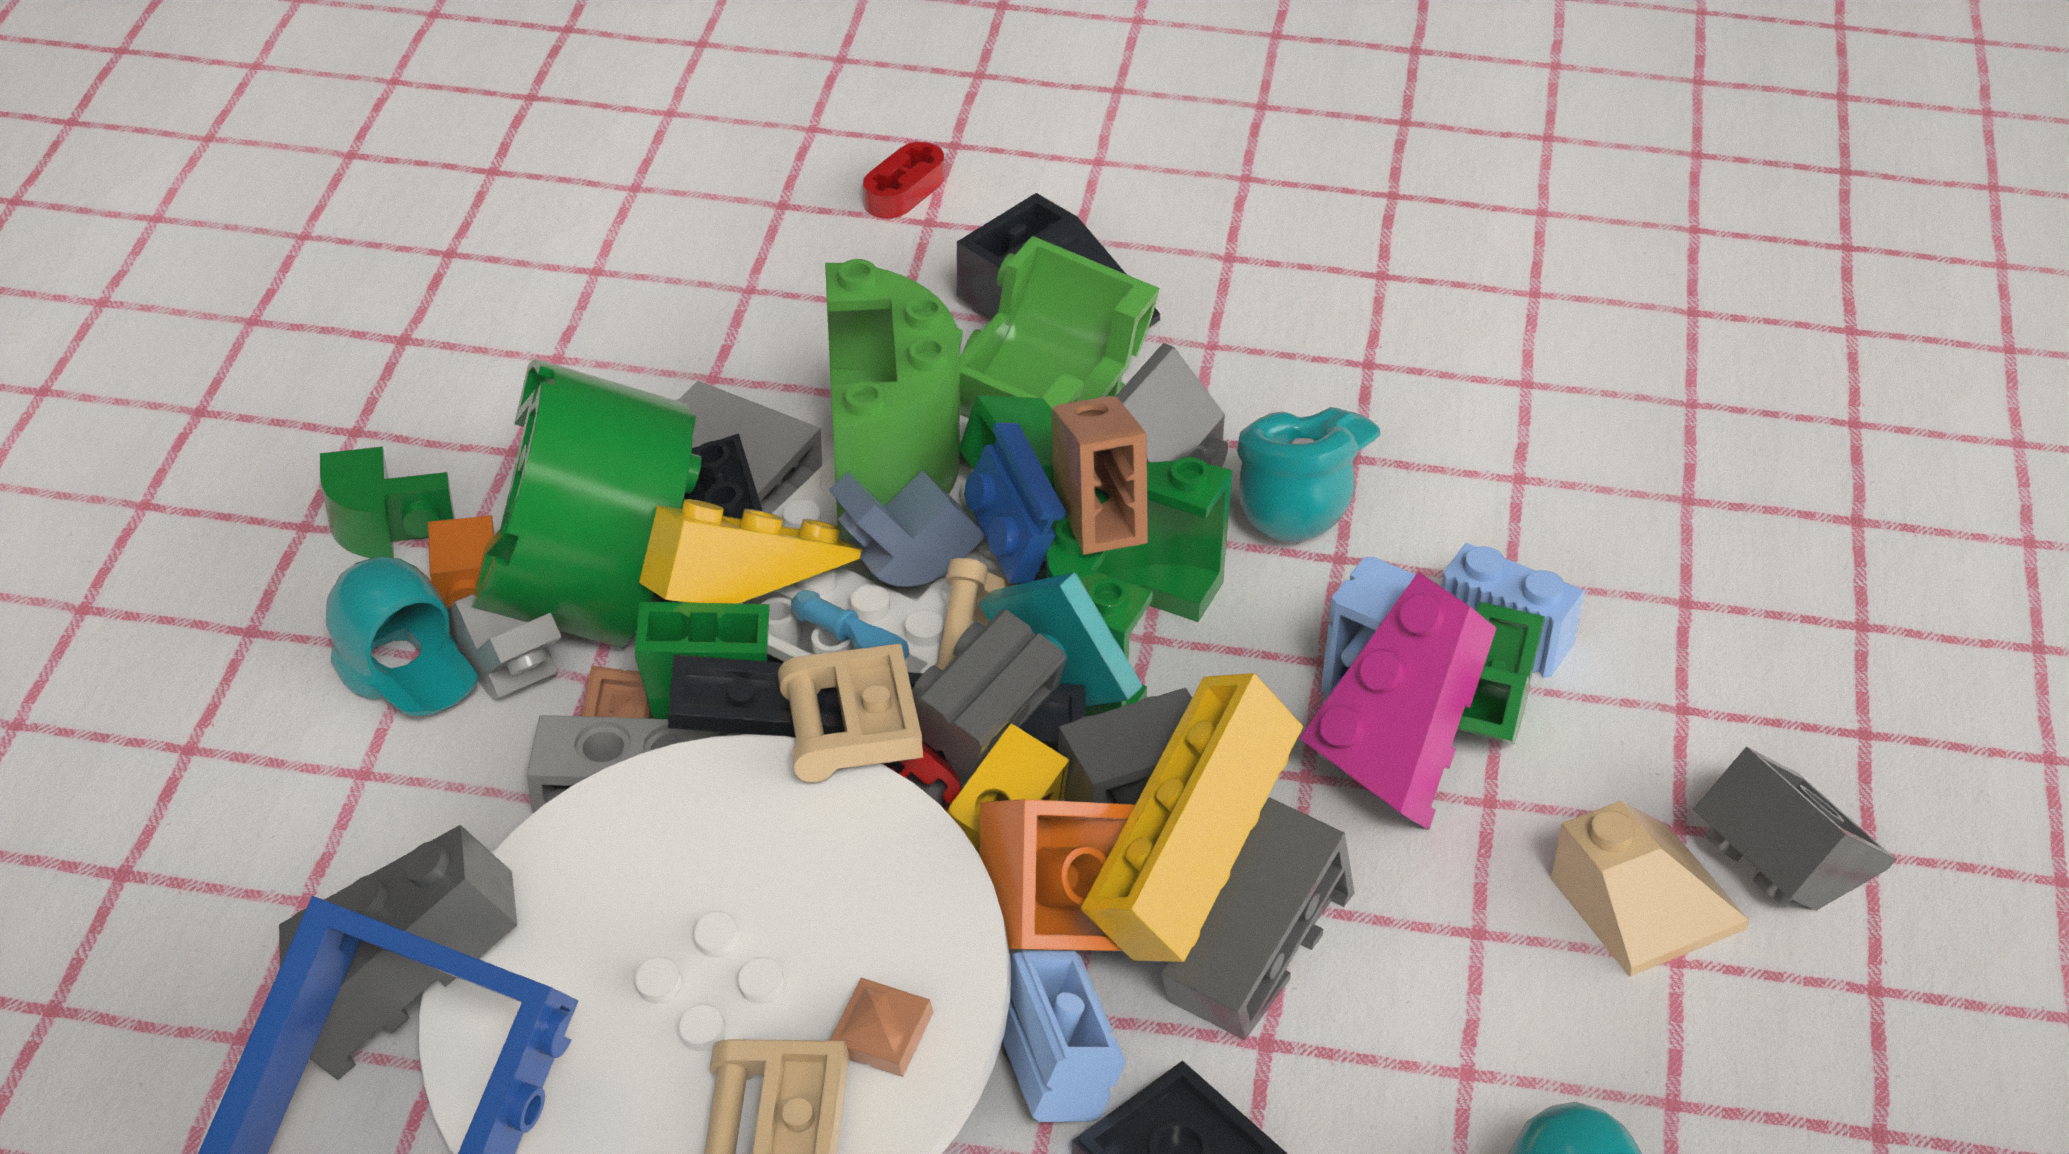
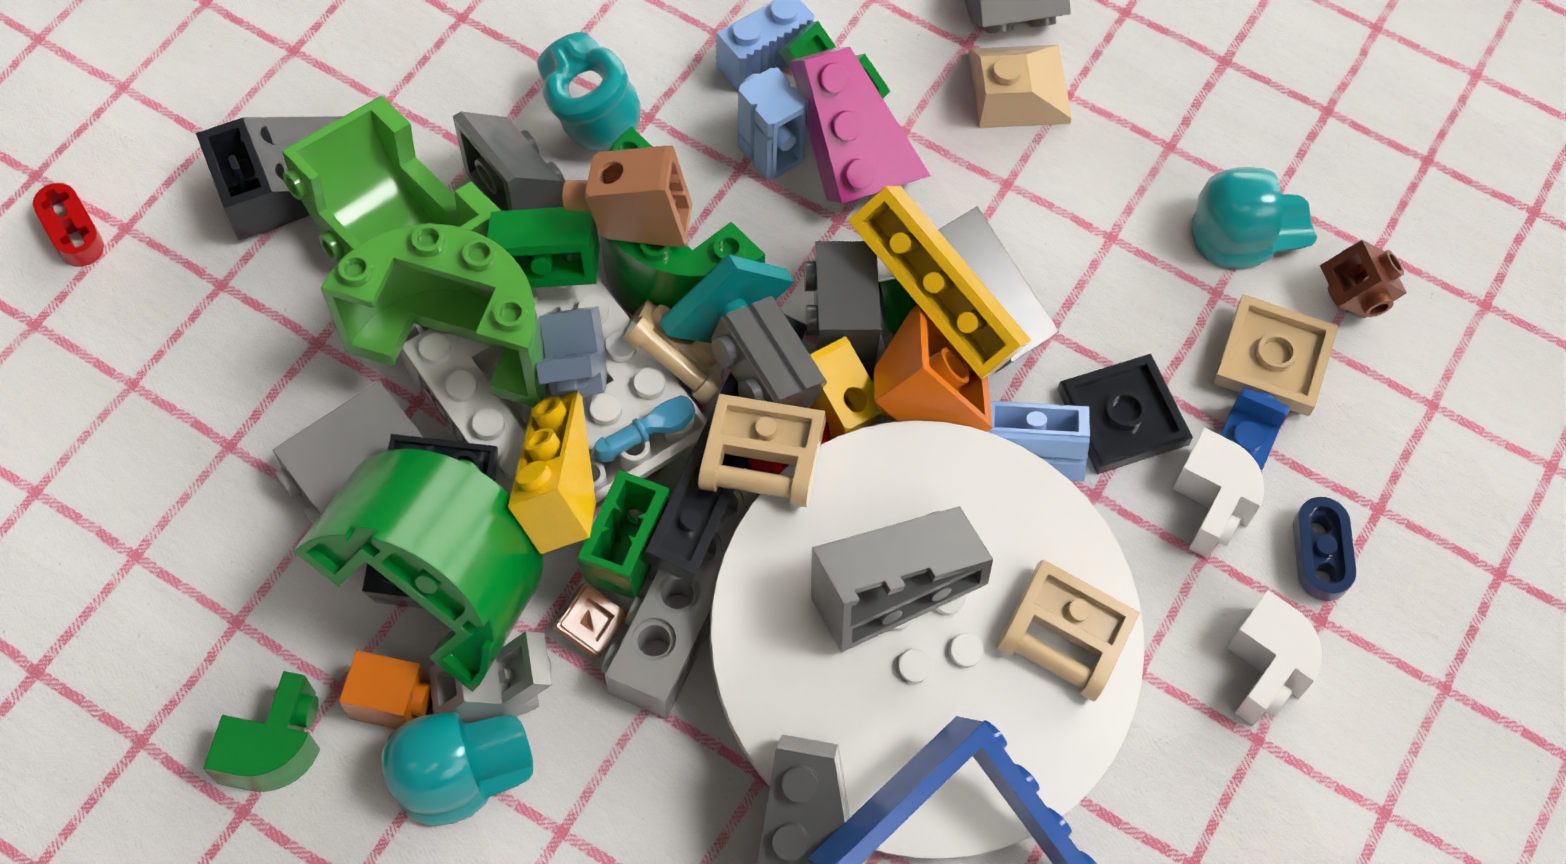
camera: 70 degrees left, 20 degrees up
(737, 874) = (896, 574): none -> wedge
(883, 1026) = (1027, 534): nougat tile -> none
(1013, 503) = (605, 270): blue plate -> none

